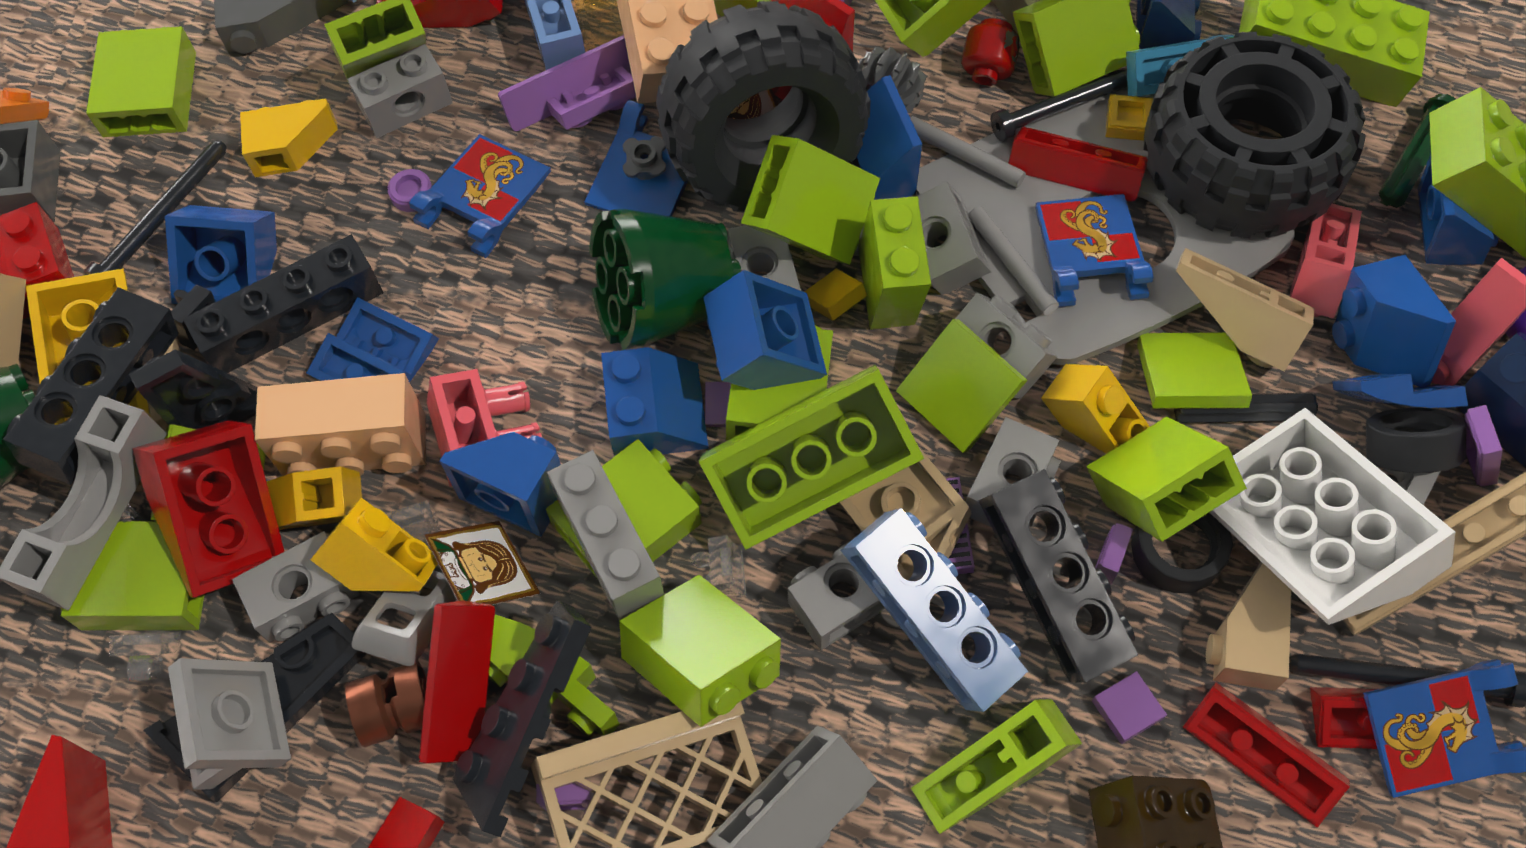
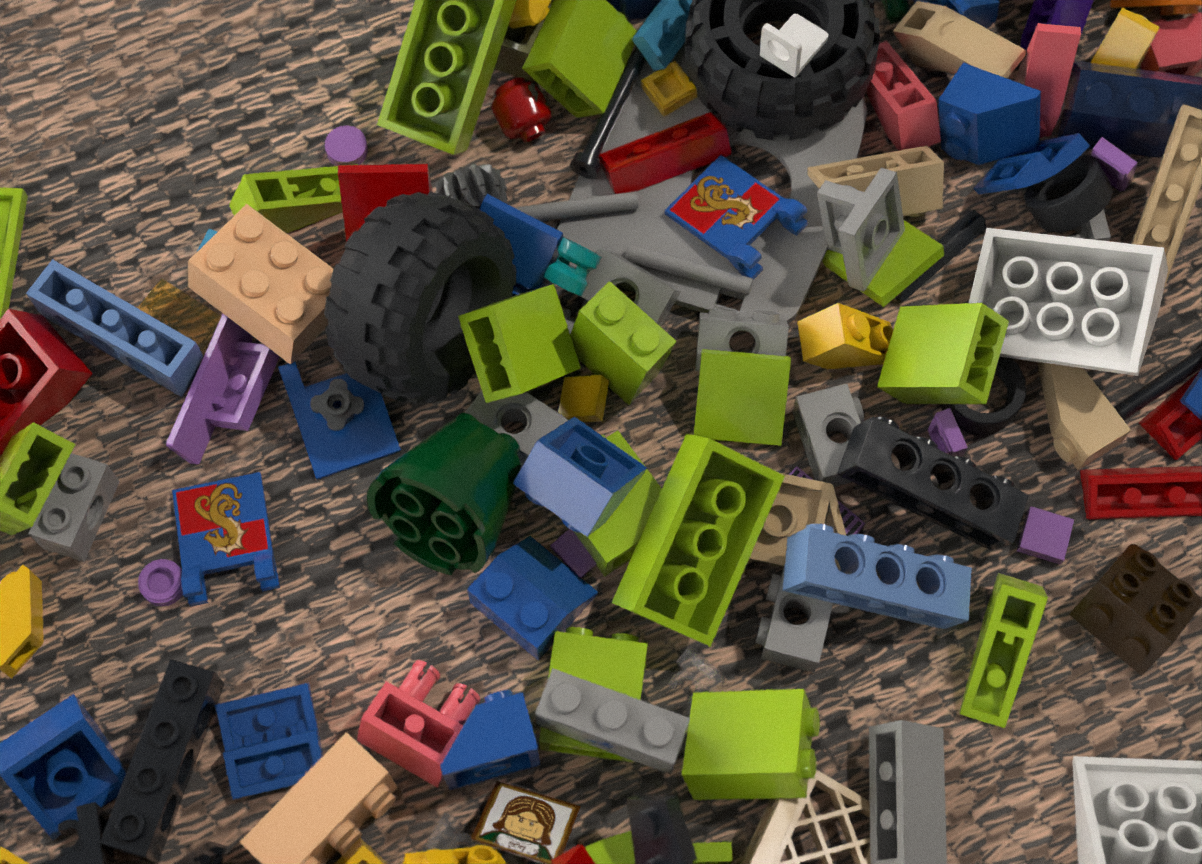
camera: 45 degrees left, 5 degrees up
(909, 176) = (567, 276): none -> teal wheel
(1191, 323) = (862, 224): none -> light grey bracket
(1246, 124) = (792, 44): none -> white bracket
(1413, 227) = (945, 39): none -> tan slope

